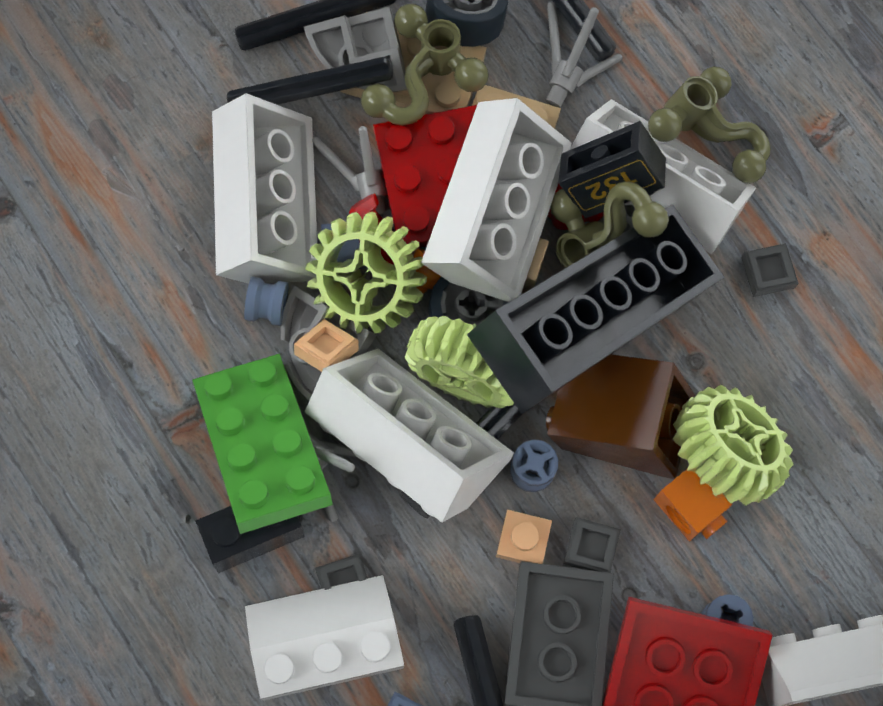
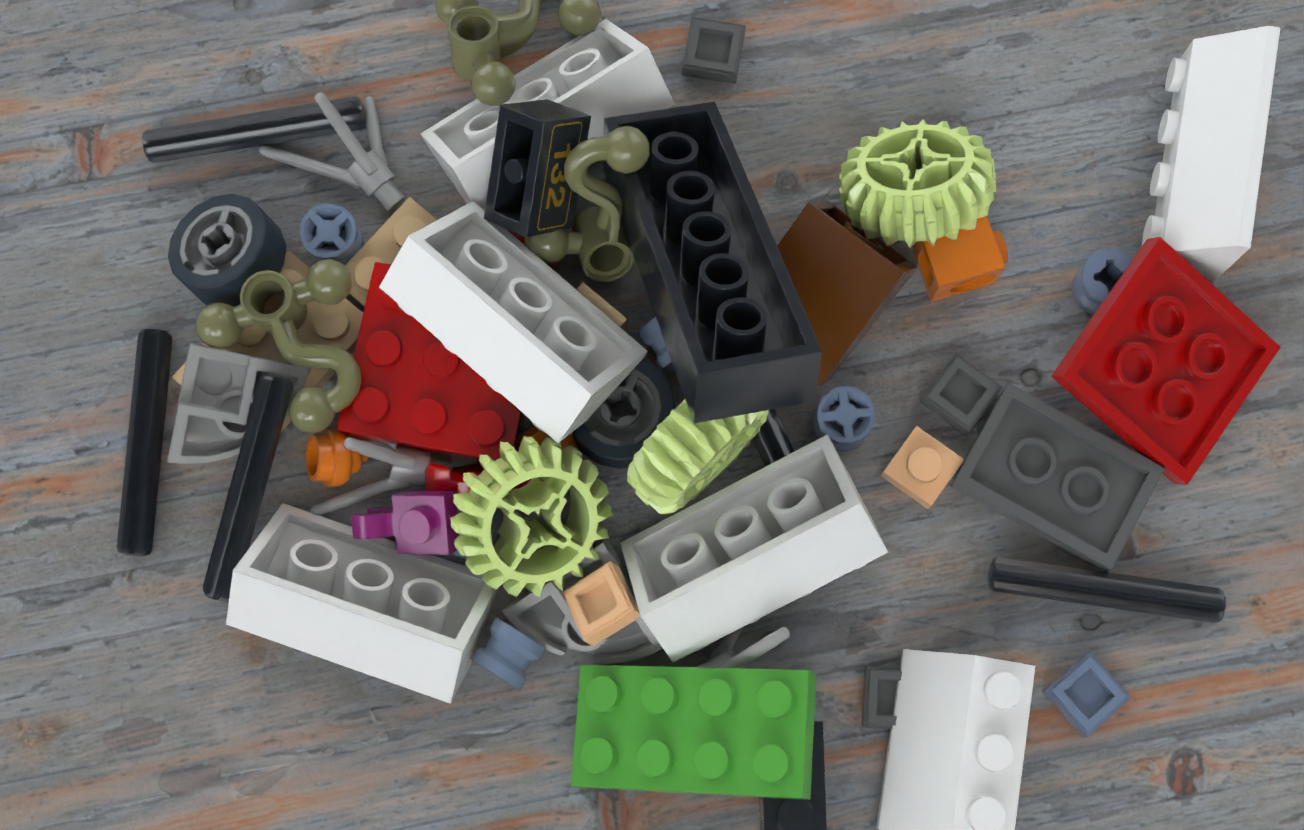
camera: 60 degrees left, 5 degrees up
(332, 198) = (417, 521): none -> magenta plate
(348, 134) = (329, 459): none -> orange plate
(508, 60) = (324, 226): none -> sand blue wheel

